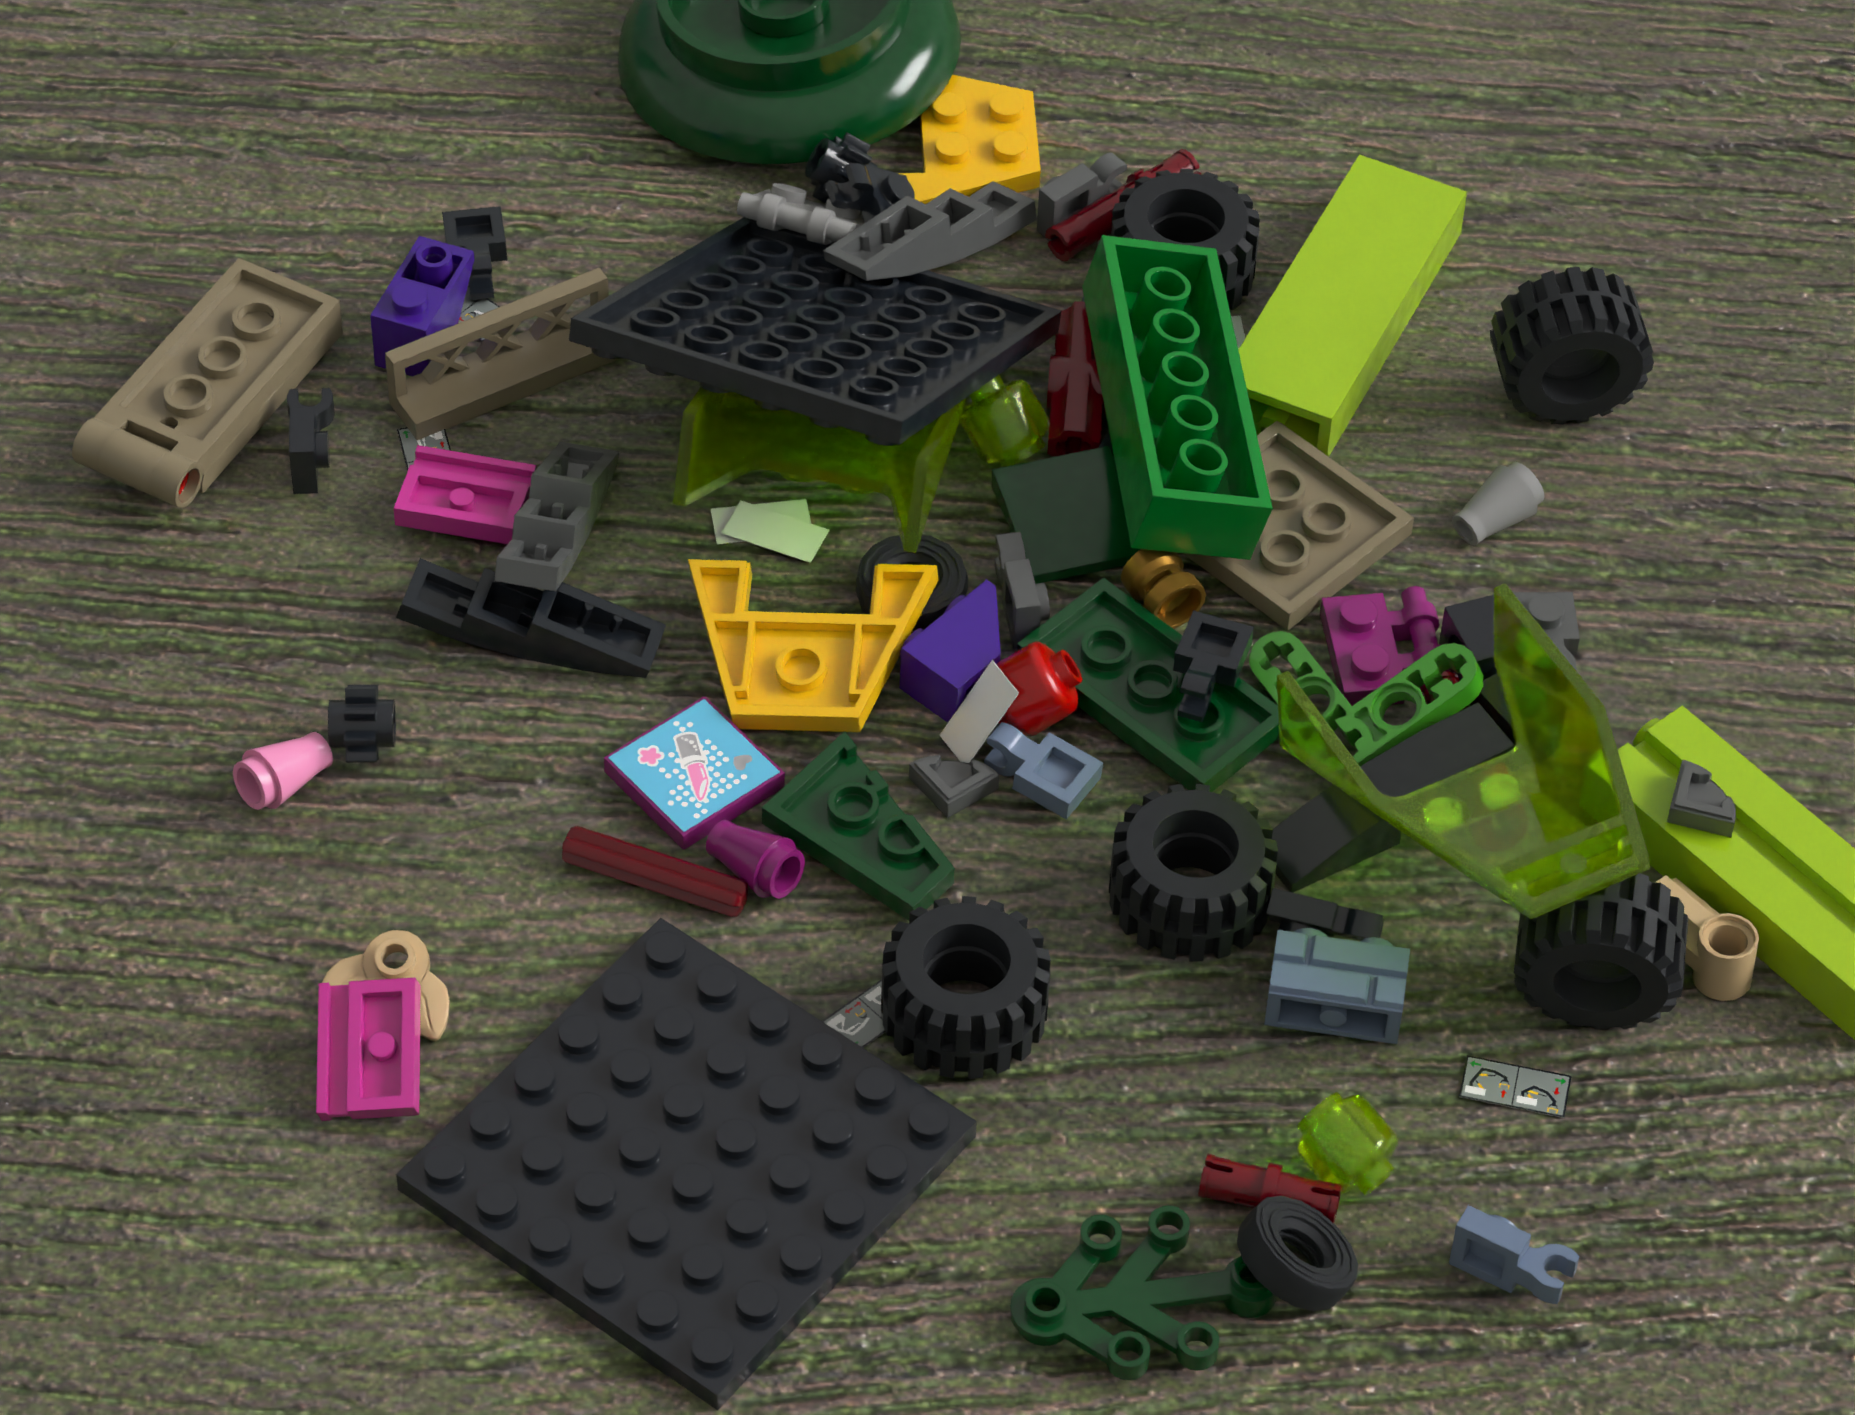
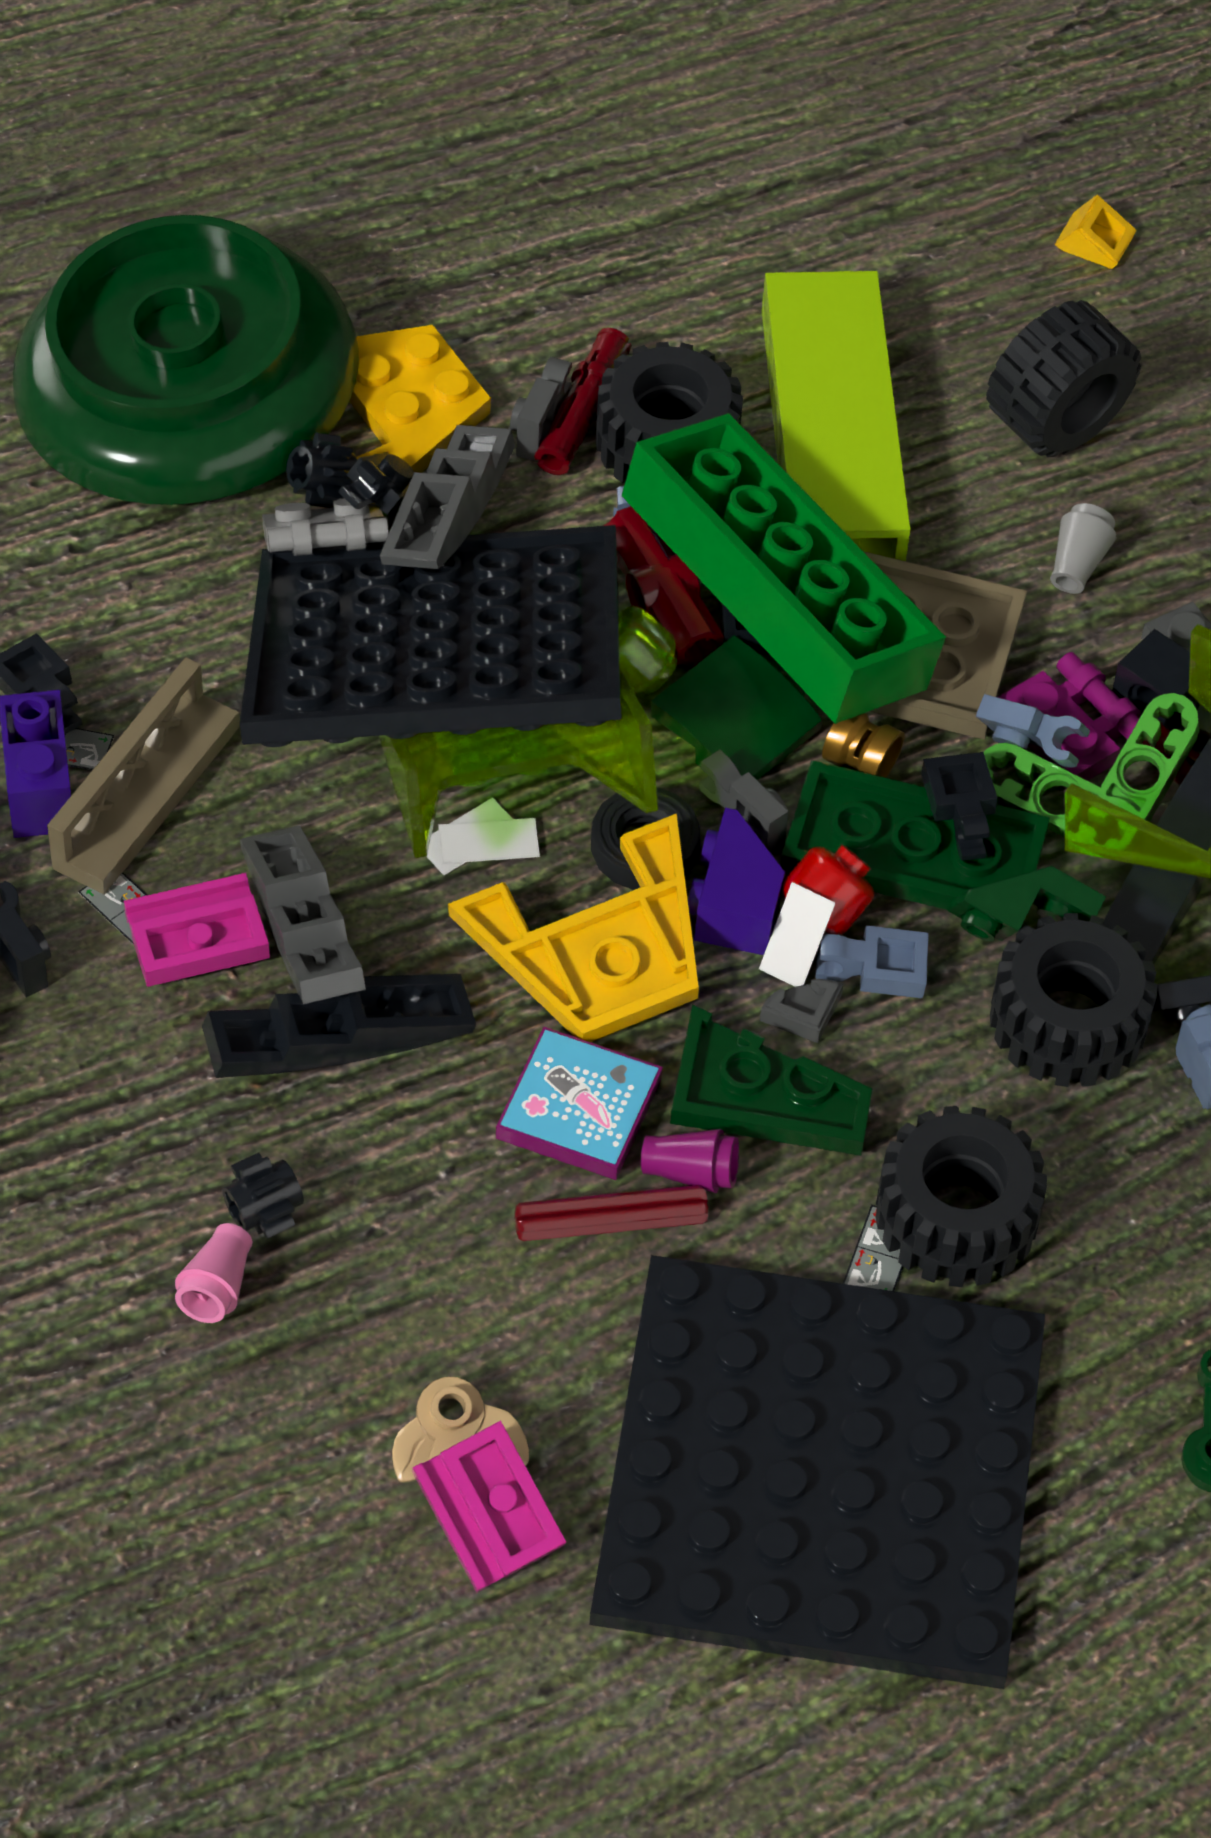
camera: 30 degrees left, 5 degrees up
(1183, 758) = (1002, 906): none -> dark green slope
(1315, 625) = (1028, 725): none -> sand blue plate
(1726, 247) = (1096, 233): none -> yellow slope

